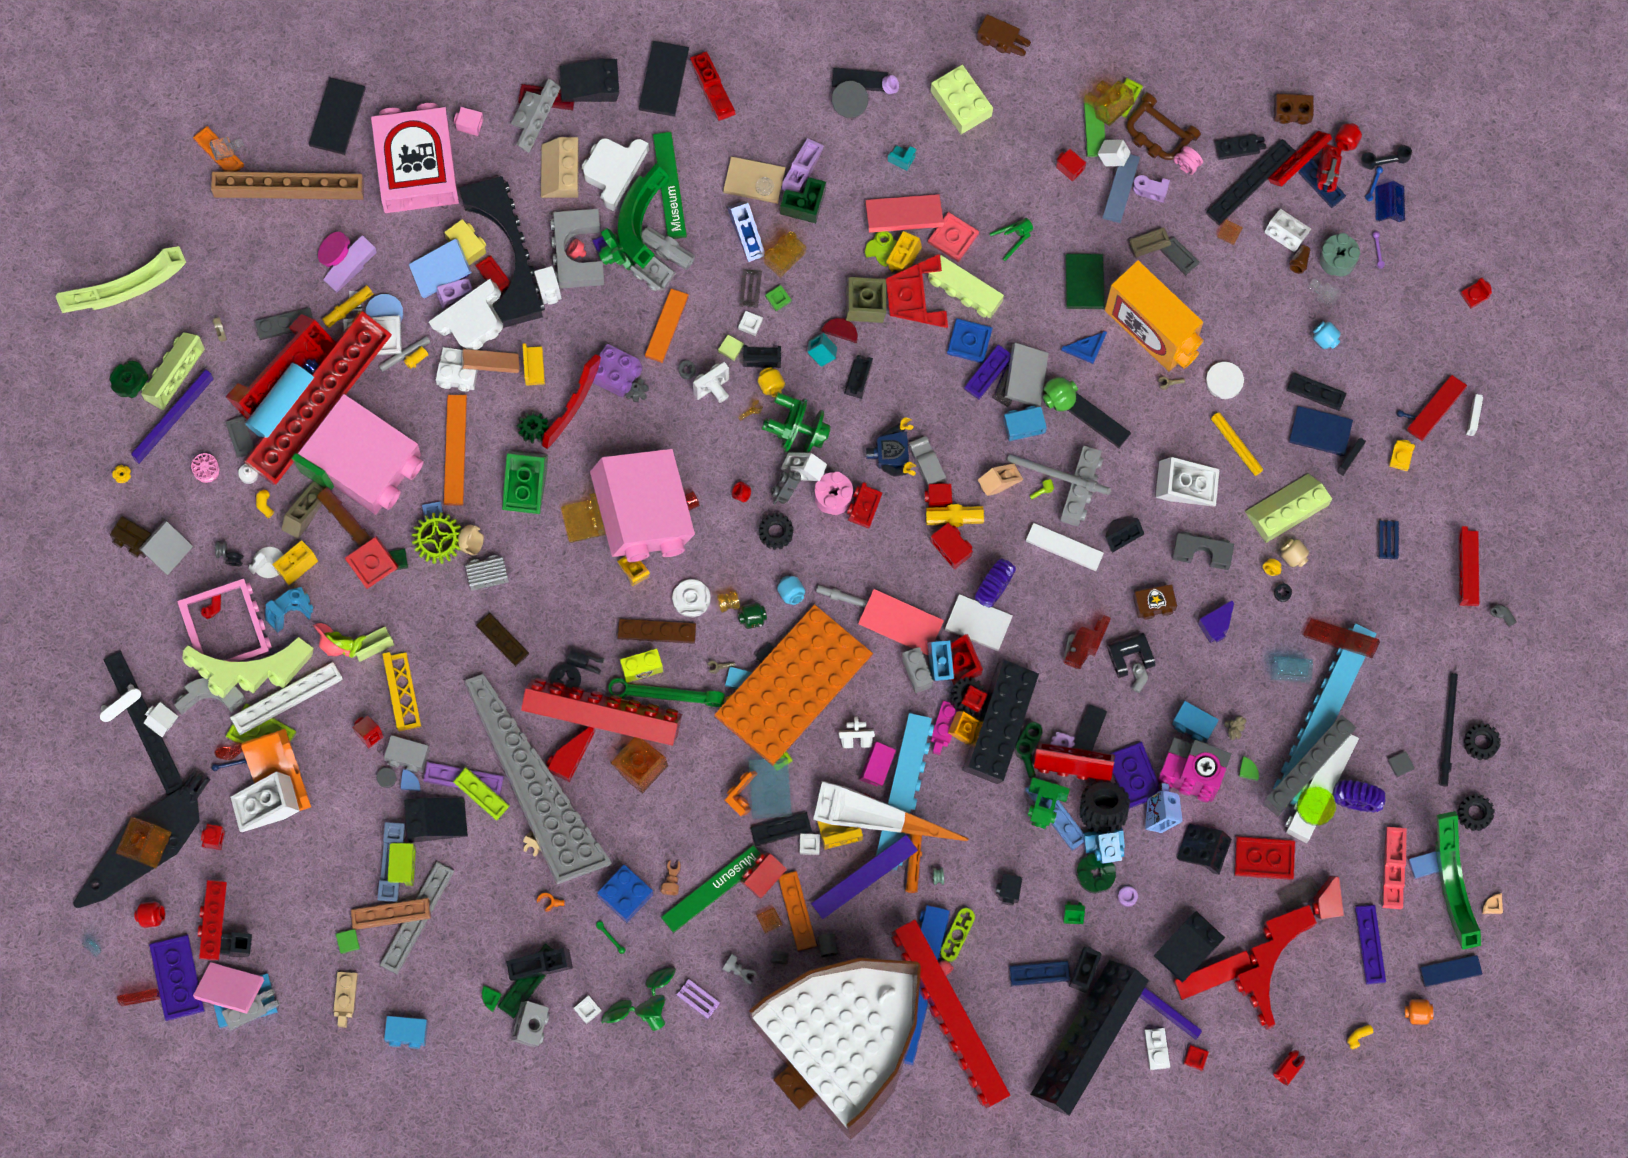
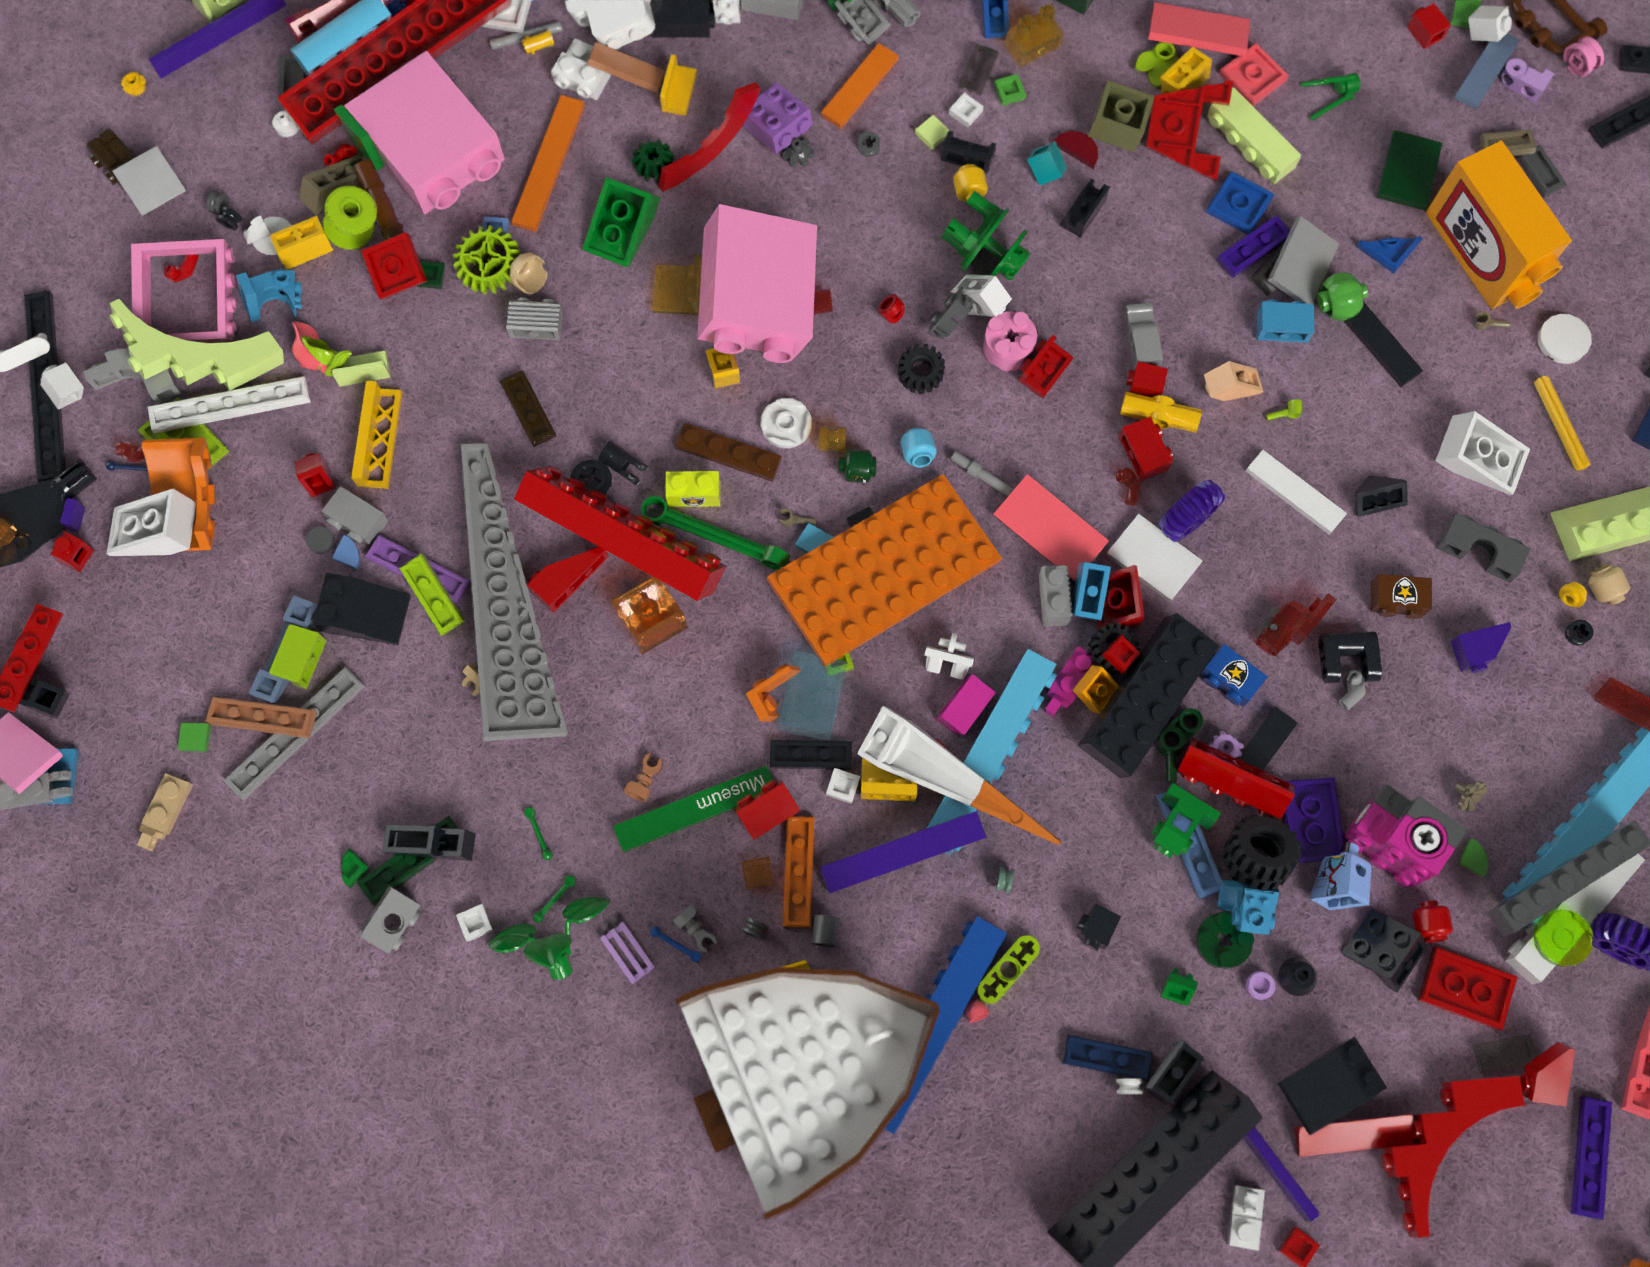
camera: 20 degrees right, 0 degrees up
(203, 811) = (72, 515): none -> dark purple tile
(205, 468) = (241, 97): bright pink wheel -> none
(261, 503) = (288, 160): yellow arm -> none
(299, 488) = (342, 153): none -> red arm
(327, 535) = (349, 217): none -> lime hose
(406, 1031) = (224, 880): dark azure brick -> none
(554, 902) = (478, 765): orange piece -> none
(625, 893) = (574, 780): blue brick -> none
(643, 963) = (569, 881): none -> green hinge
(712, 382) = (894, 162): white plate -> none
(744, 988) = (695, 956): none -> blue hinge
(752, 410) = (938, 214): clear yellow hand -> none
(893, 450) = (1103, 308): torso -> none
(913, 865) = (975, 856): orange pin -> none
(945, 570) = (1132, 484): none -> clear red arm
(951, 1016) = (967, 1085): red brick -> none
(1054, 691) = (1233, 676): none -> blue brick
(1058, 987) = (1129, 1086): none -> white bush
(1078, 495) = (1339, 419): light grey brick -> none
(1090, 485) = (1355, 417): light grey bar -> none
(1156, 885) = (1297, 976): none -> black cone
(1194, 722) = (1416, 771): dark azure brick -> none
(1230, 232) = (1615, 159): clear orange tile -> none
(1230, 820) = (1433, 921): none -> red head
(1291, 669) = (1569, 738): clear light blue brick -> none

